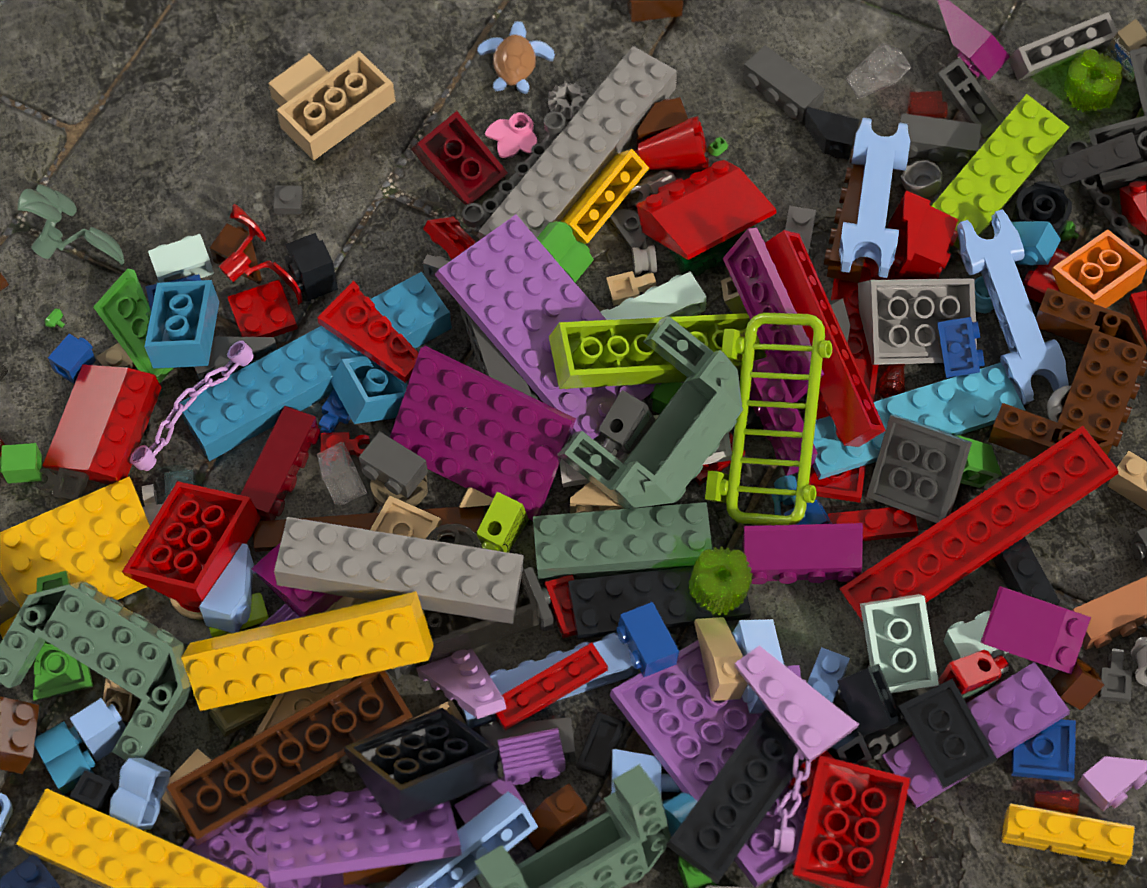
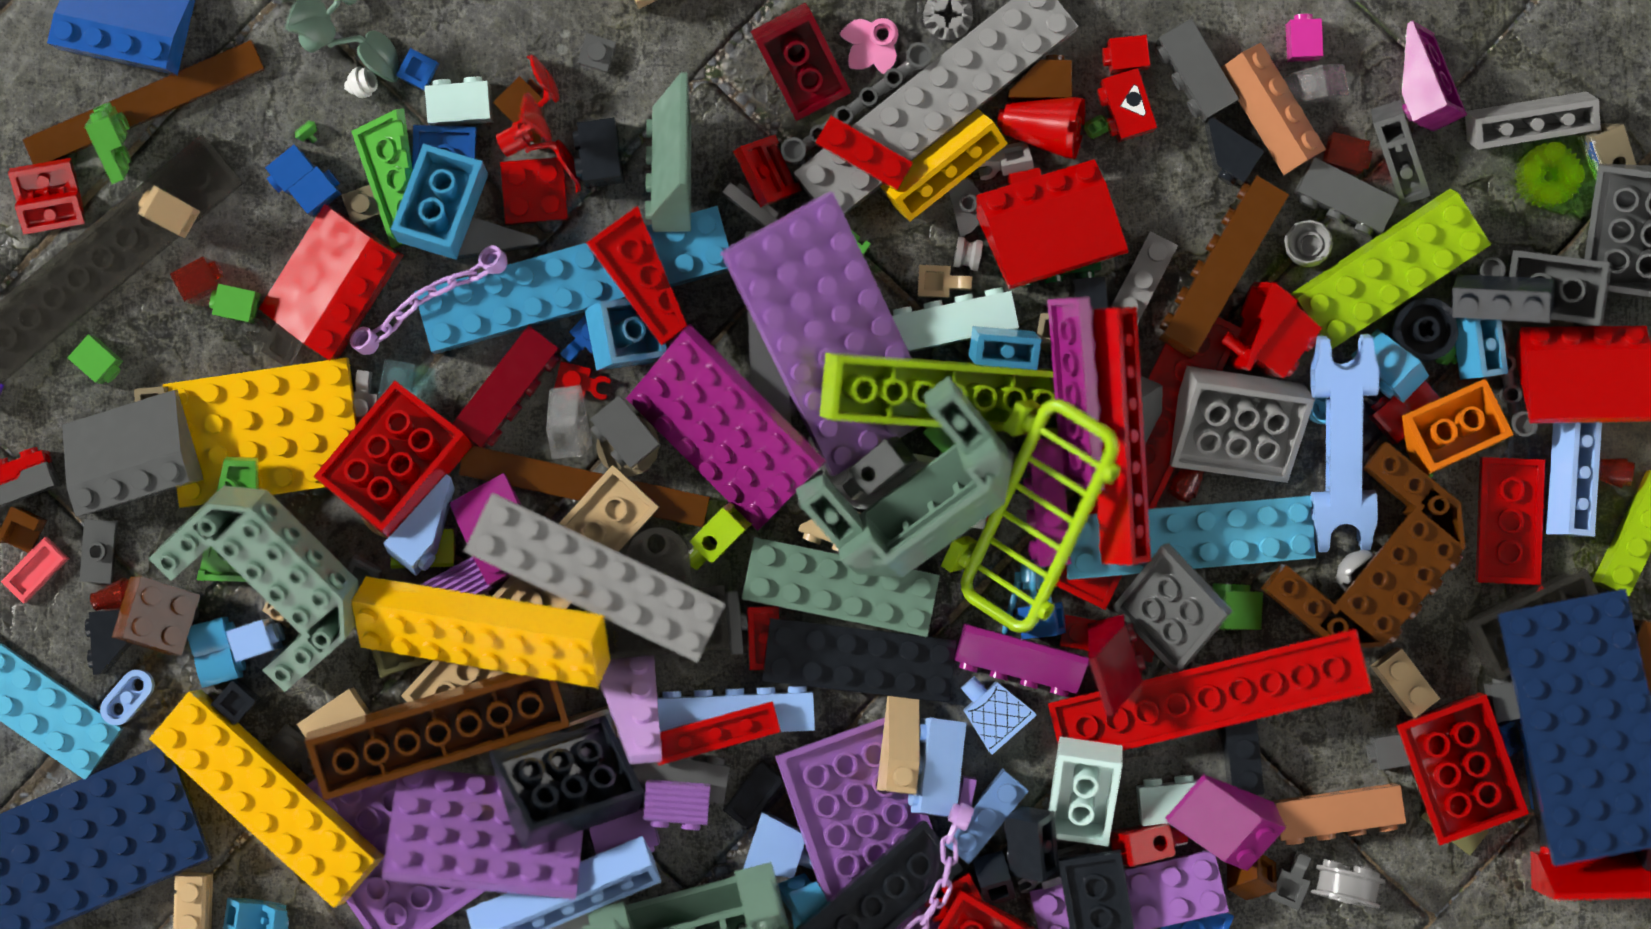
camera: 15 degrees right, 25 degrees up
(42, 345) = (288, 169): none -> blue brick
(92, 269) = (361, 82): none -> white plate
(137, 247) = (417, 69): none -> blue plate
(139, 793) = (279, 723): light blue brick -> none
(372, 240) = (670, 160): none -> sand green slope
(475, 498) = (702, 491): tan slope -> none
(532, 197) = (864, 153): none -> red plate
(556, 817) = (686, 860): reddish brown slope -> none
(565, 249) = (879, 223): bright green brick -> none
(647, 640) = (829, 715): blue brick -> none
(700, 302) = (1004, 347): none -> dark azure brick
(723, 87) = (1126, 54): none -> red brick
(724, 566) = (943, 673): clear neon green brick -> none
(736, 122) = (1127, 105): none -> red brick
(796, 609) = (995, 713): none -> light blue torso
(799, 709) = (955, 843): lavender wing -> none
(855, 91) = (1272, 109): none -> nougat brick
(859, 41) = (1304, 38): none -> dark pink brick
(869, 235) = (1217, 319): light blue piece -> none
(884, 523) = (1115, 660): none -> dark red slope
(959, 346) = (1271, 470): blue bracket -> none
(1093, 209) = (1480, 348): none -> dark azure brick

